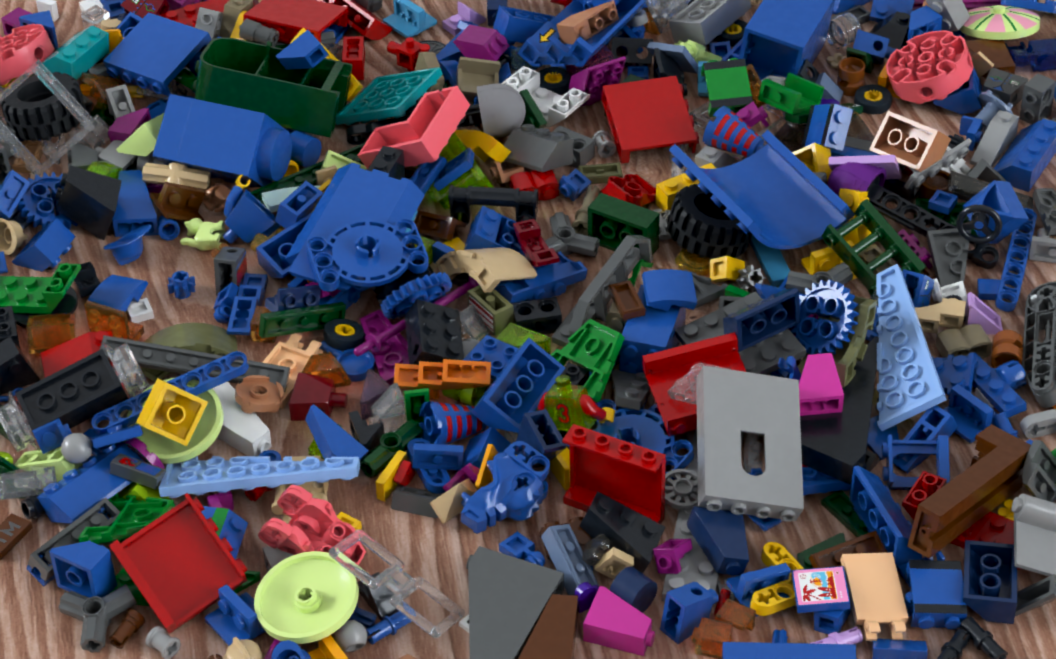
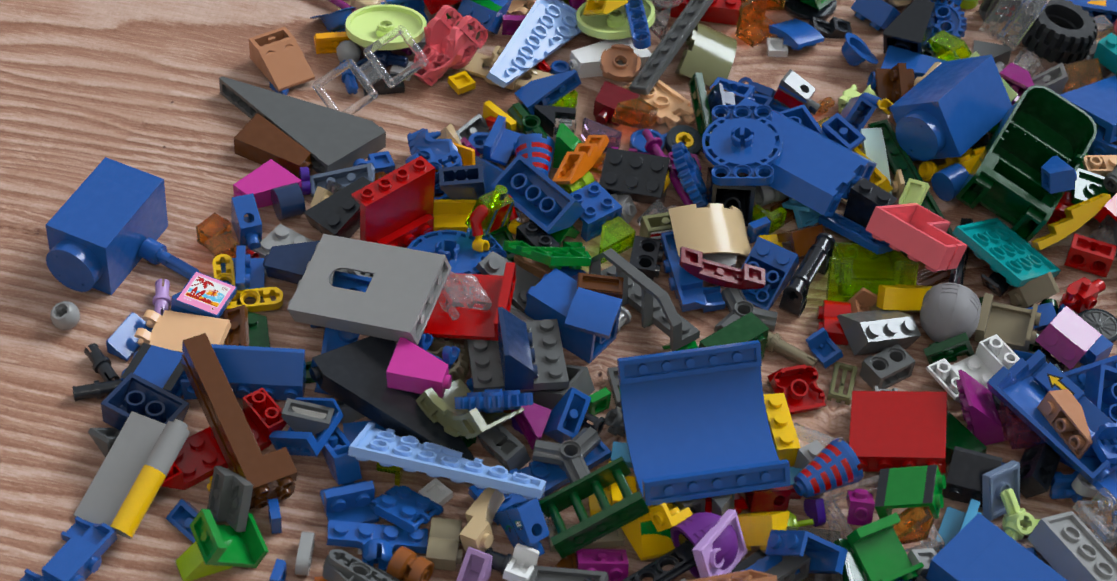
camera: 105 degrees right, 5 degrees up
(181, 284) = (795, 65): blue gear -> none
(455, 169) = (869, 260): blue plate -> none
(669, 553) = (306, 228): magenta bracket -> none
(912, 453) = (306, 416): none -> dark grey slope
(1002, 422) = (315, 519): blue pin -> none

